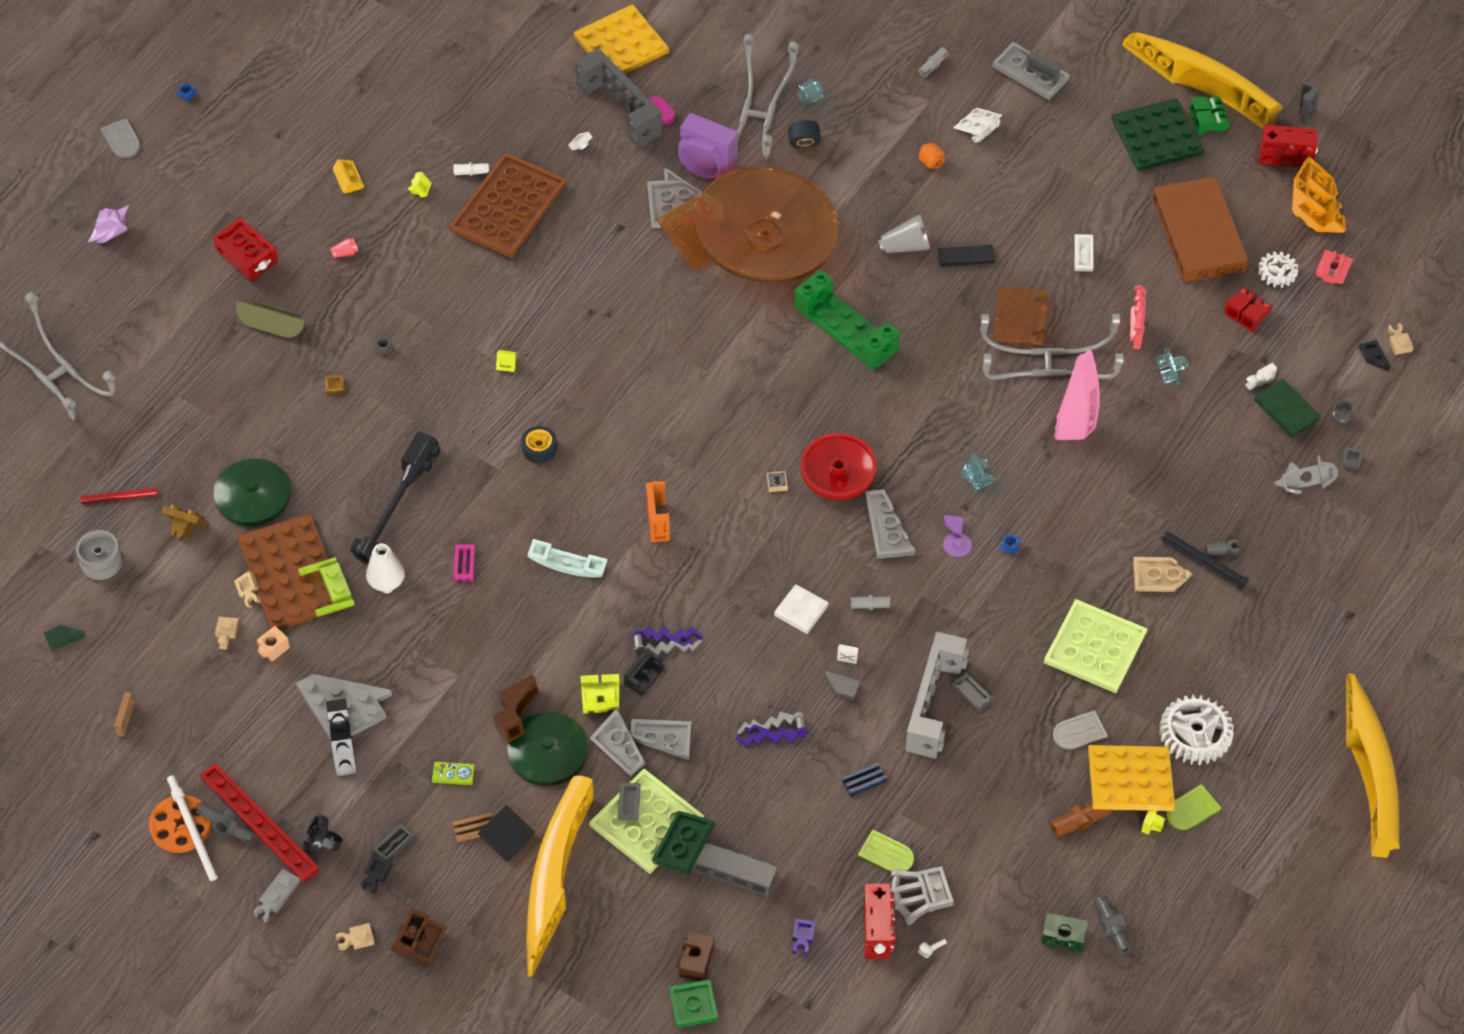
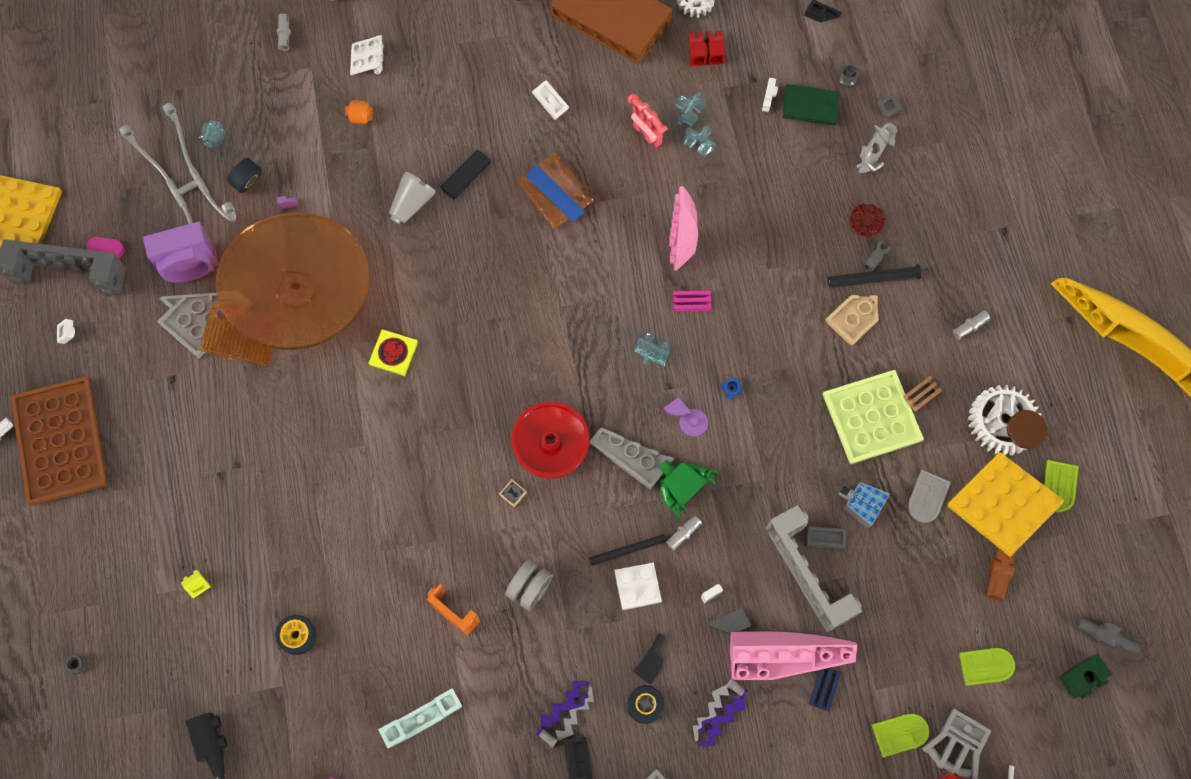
camera: 45 degrees left, 15 degrees up
(334, 384) = (67, 738): pearl gold tile -> none
(725, 538) = (529, 584): none -> light grey wheel
(726, 679) = (651, 707): none -> black wheel
(759, 662) = (651, 663): none -> black piece
(789, 329) = (393, 352): none -> tile
(815, 176) = (287, 203): none -> medium lavender tile
(819, 581) = (627, 549): none -> black bar
(843, 323) = (432, 310): green plate -> none
(856, 731) = (784, 654): none -> bright pink wedge
(903, 569) = (682, 483): none -> green torso
(999, 868) = (986, 666): none -> lime window
(1018, 316) = (555, 193): none -> blue sticker
(1025, 692) = (863, 503): none -> torso
(1046, 464) = (692, 300): none -> dark pink tile
(1047, 353) = (618, 219): light grey bar -> none
(1148, 656) = (932, 386): none -> medium nougat tile
(1152, 822) = (1050, 527): neon yellow tile -> none
(1179, 342) = (687, 106): none -> clear light blue hips
(1201, 741) = (1027, 429): none -> reddish brown tile
(1244, 520) = (867, 220): none -> clear red wheel
(1244, 650) = (971, 325): none -> light grey pin

